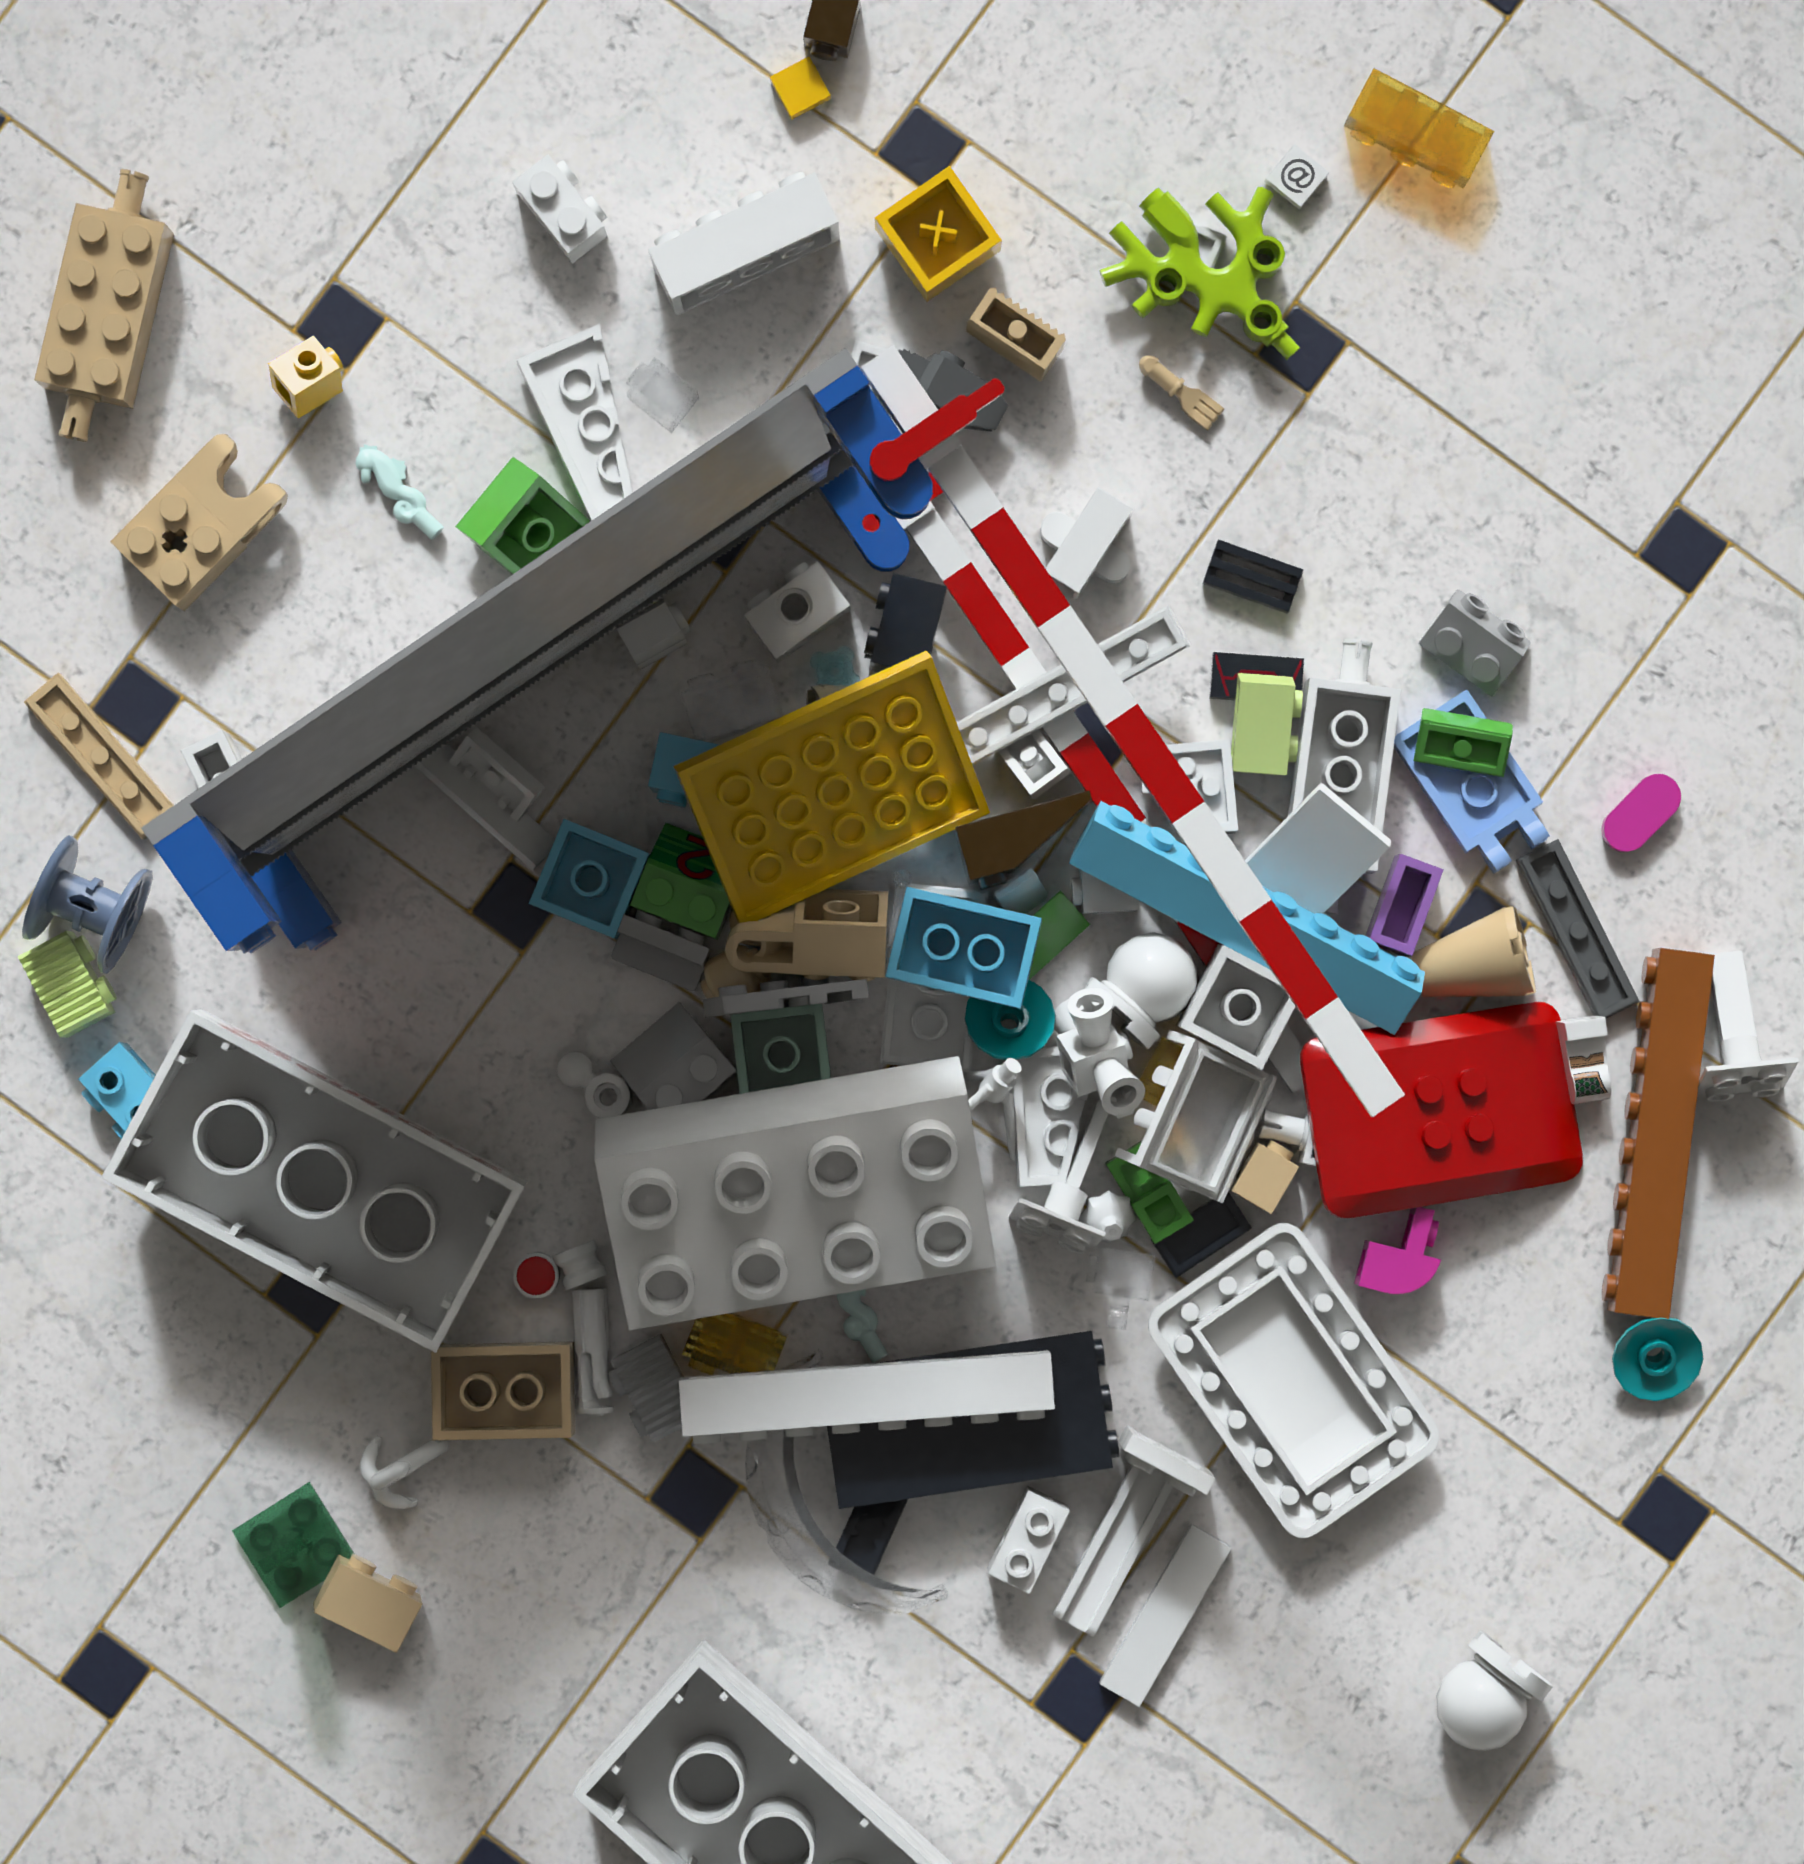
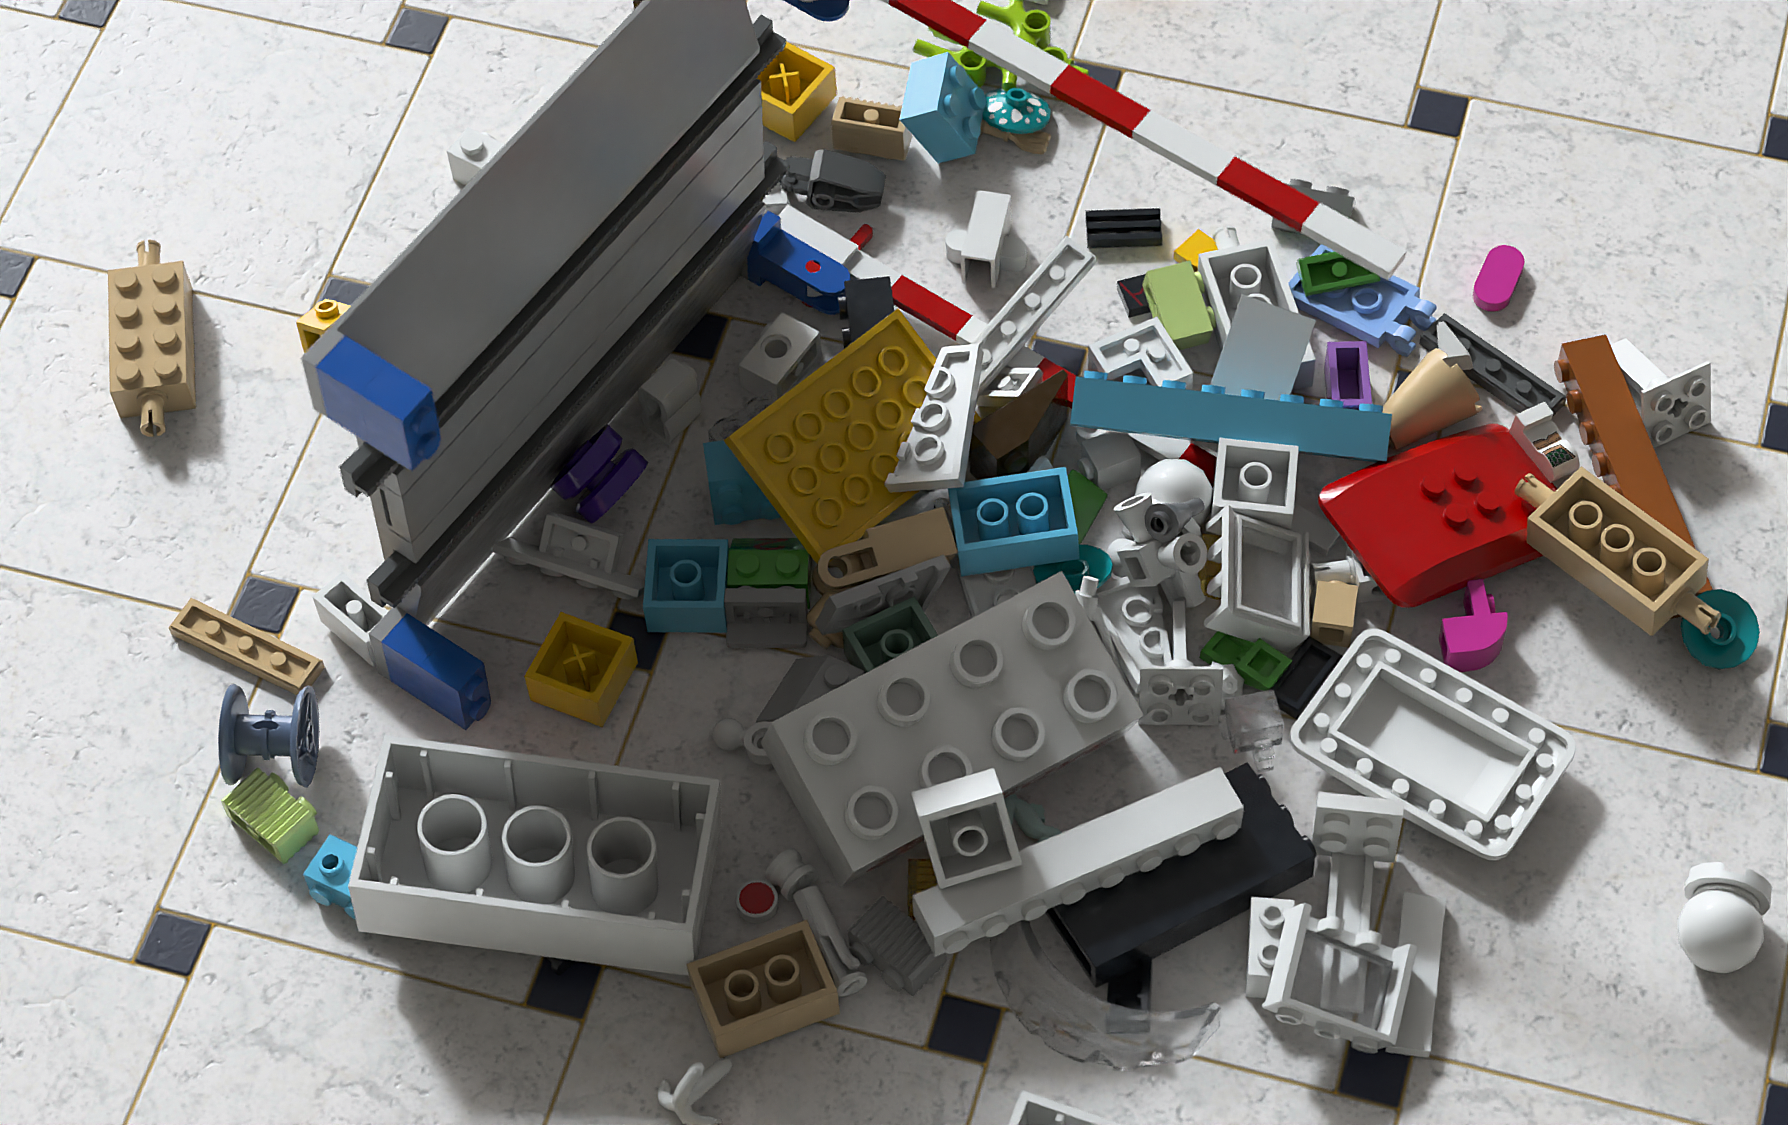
camera: 15 degrees left, 30 degrees down
(214, 524) = (271, 459): tan brick -> none
(443, 940) = (581, 669): none -> yellow brick
(545, 718) = (604, 479): none -> dark purple wheel
(755, 1343) = (966, 828): none -> white brick
(921, 824) = (942, 426): none -> white wing
(1077, 1615) = (1339, 980): none -> window
(1106, 346) = (943, 107): none -> medium azure brick
(1119, 1042) = (1168, 519): none -> flat silver cone
(1186, 375) = (1016, 111): none -> teal dish
(1321, 646) = (1193, 246): none -> yellow tile
(1537, 905) = (1453, 348): none -> white slope
(1584, 1250) = (1617, 551): none -> tan brick

